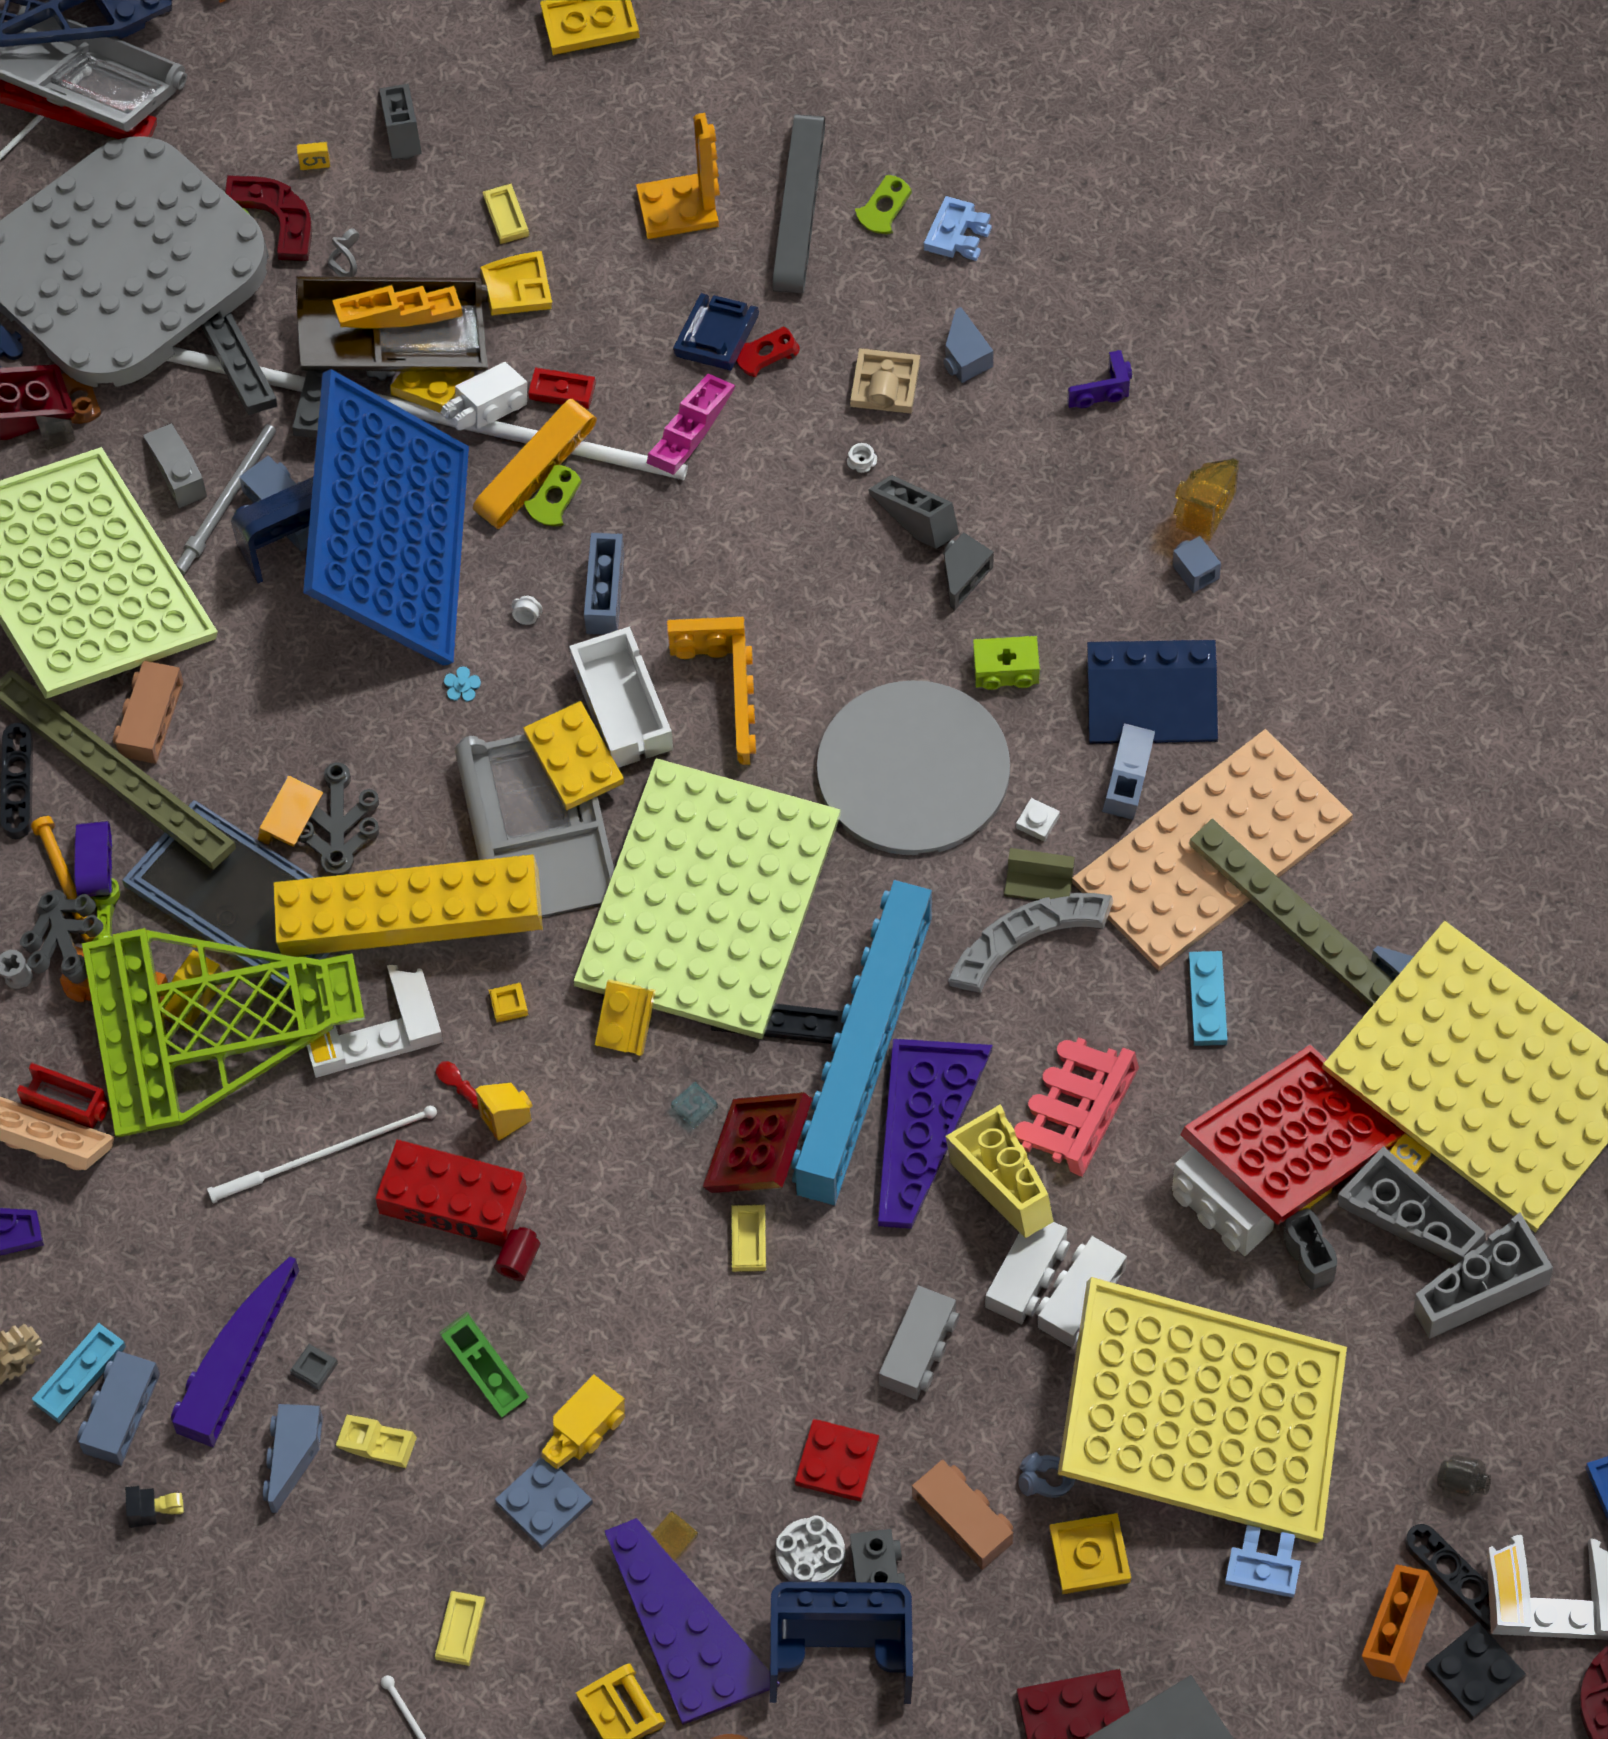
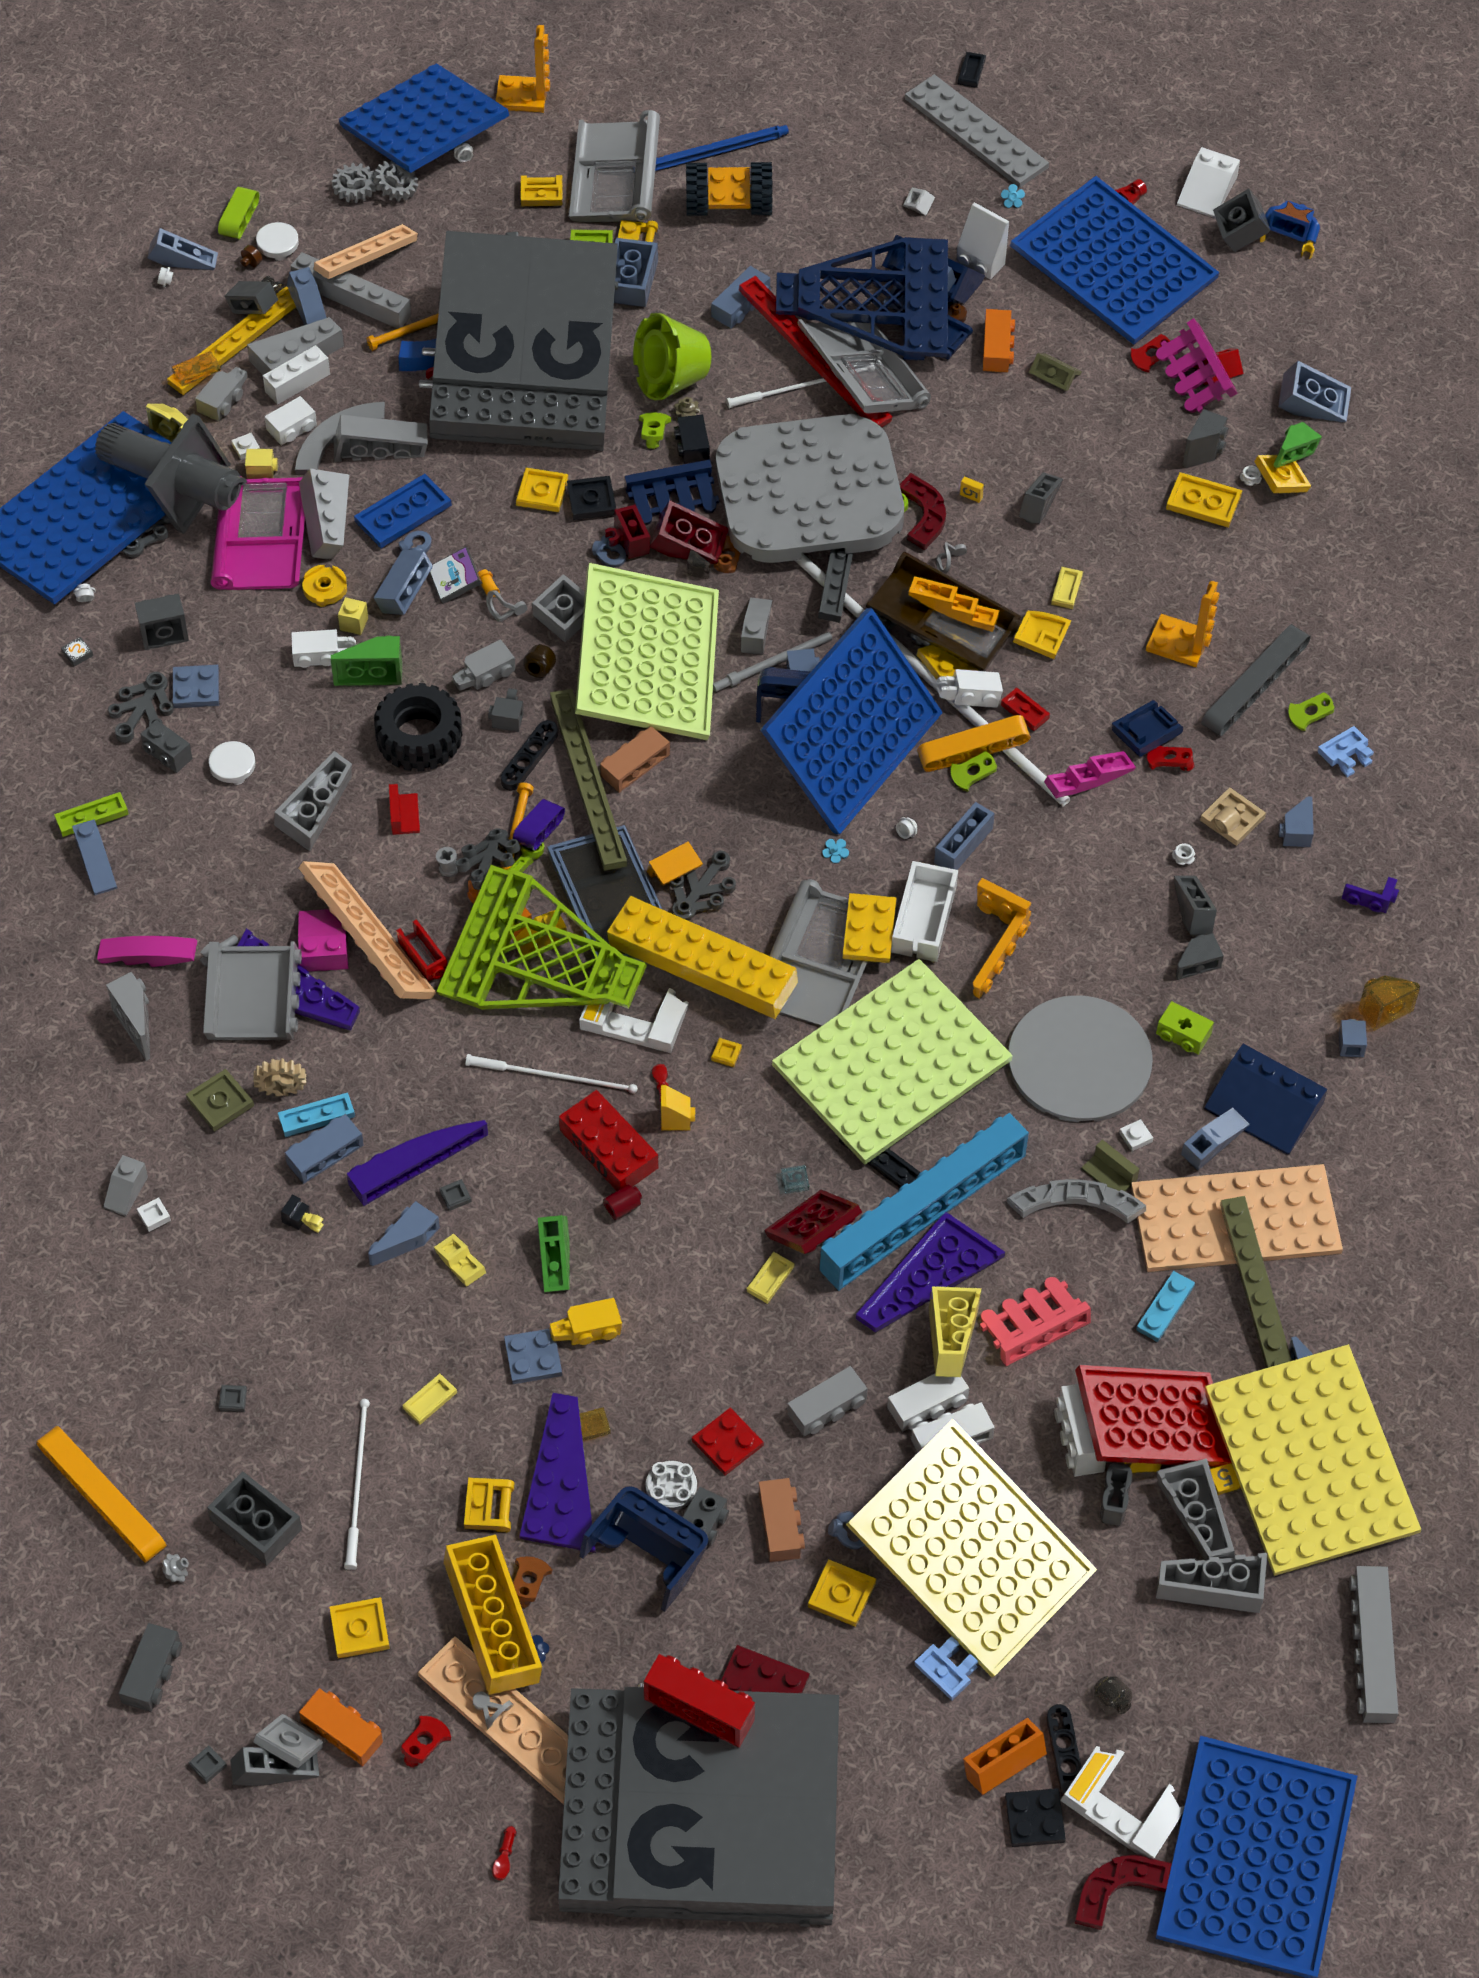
camera: 30 degrees right, 5 degrees down
(625, 1017) = (788, 1101): yellow plate -> none

